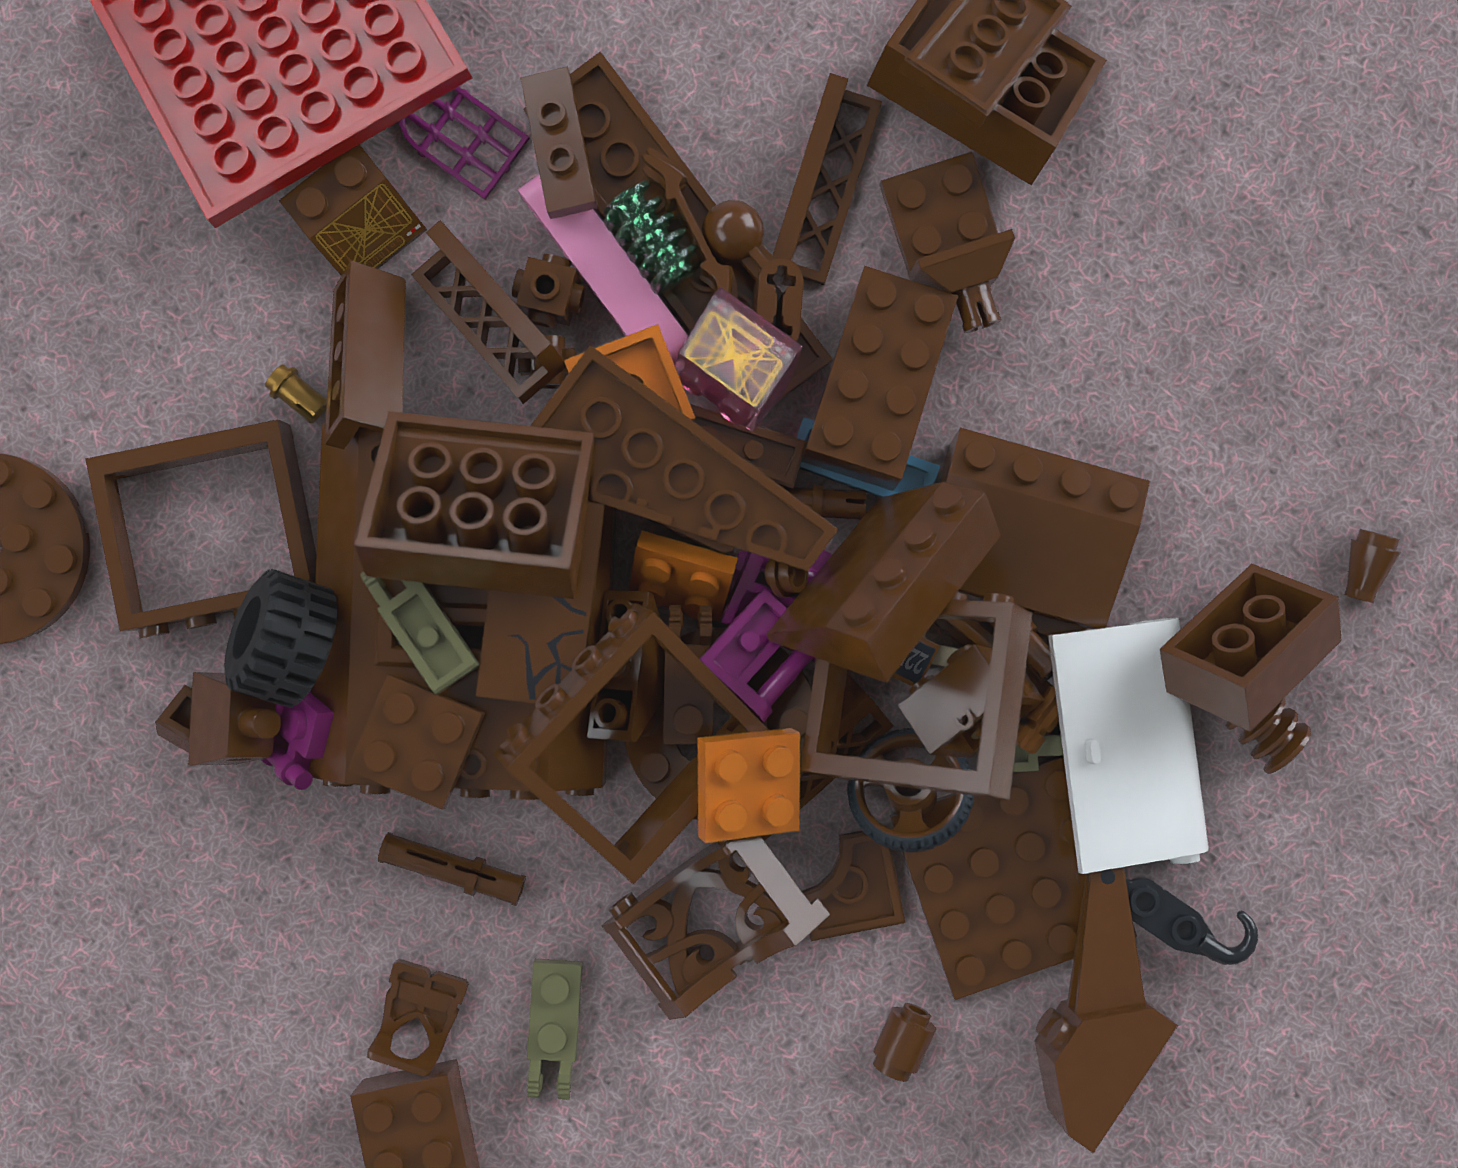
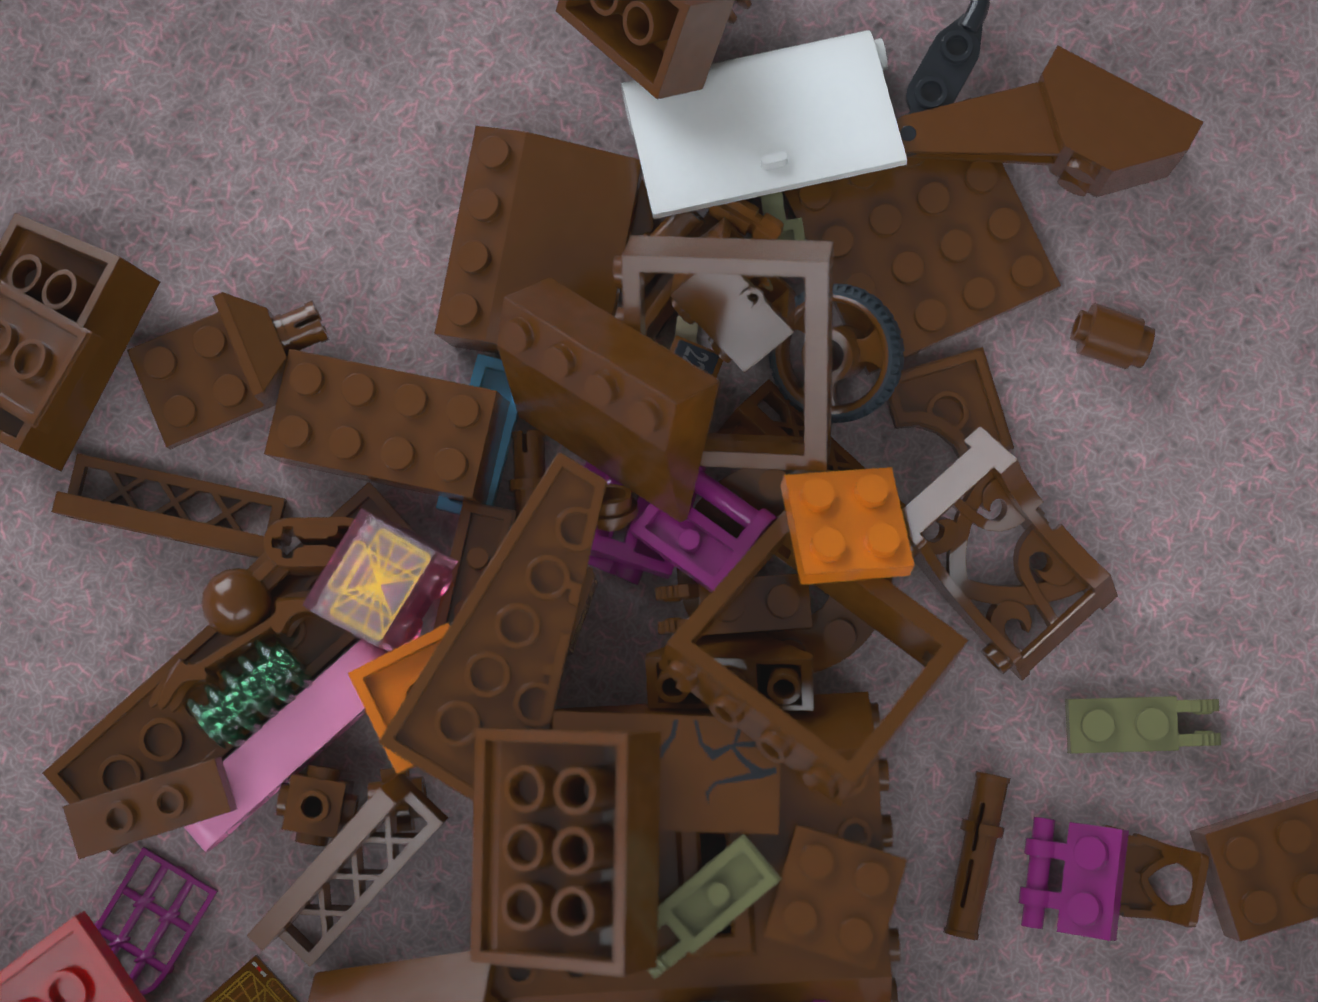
camera: 95 degrees left, 5 degrees down
(418, 967) = (1090, 880): none -> magenta plate
(682, 574) = (622, 623): orange plate -> none

